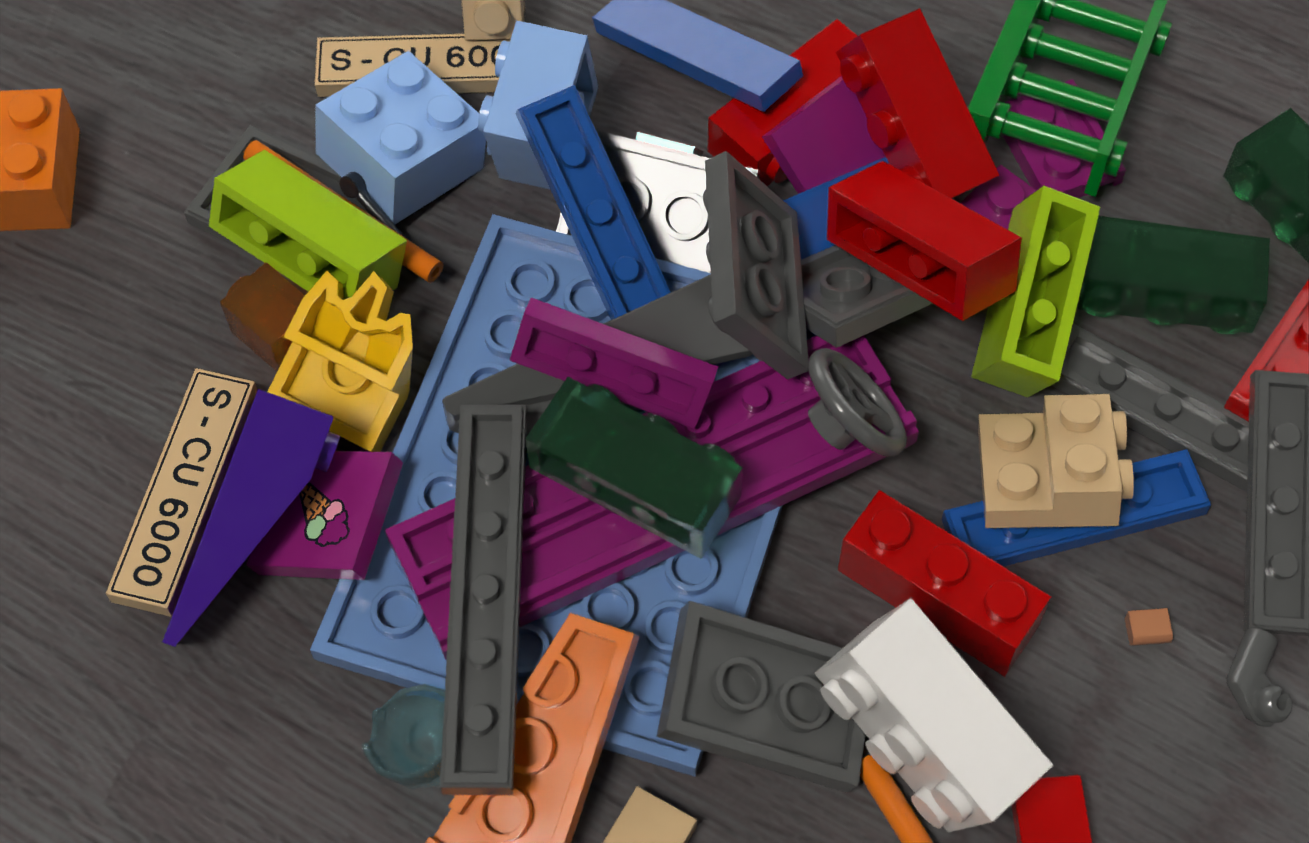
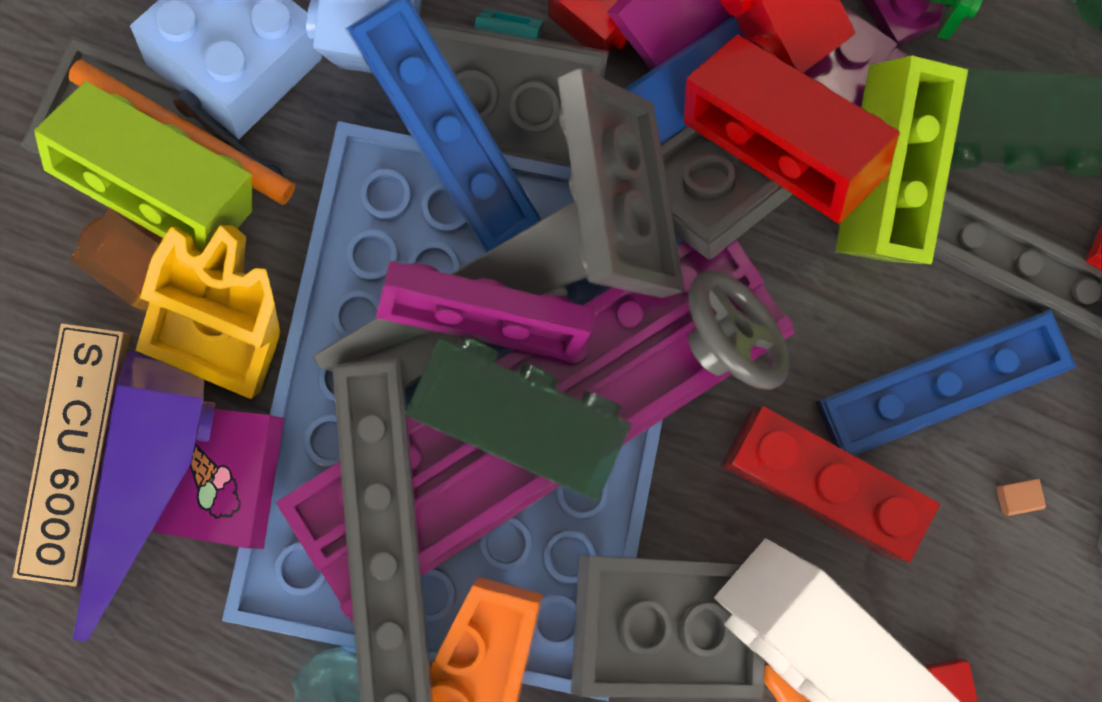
camera: 10 degrees left, 20 degrees up
(1055, 464) = (928, 346): tan plate -> none

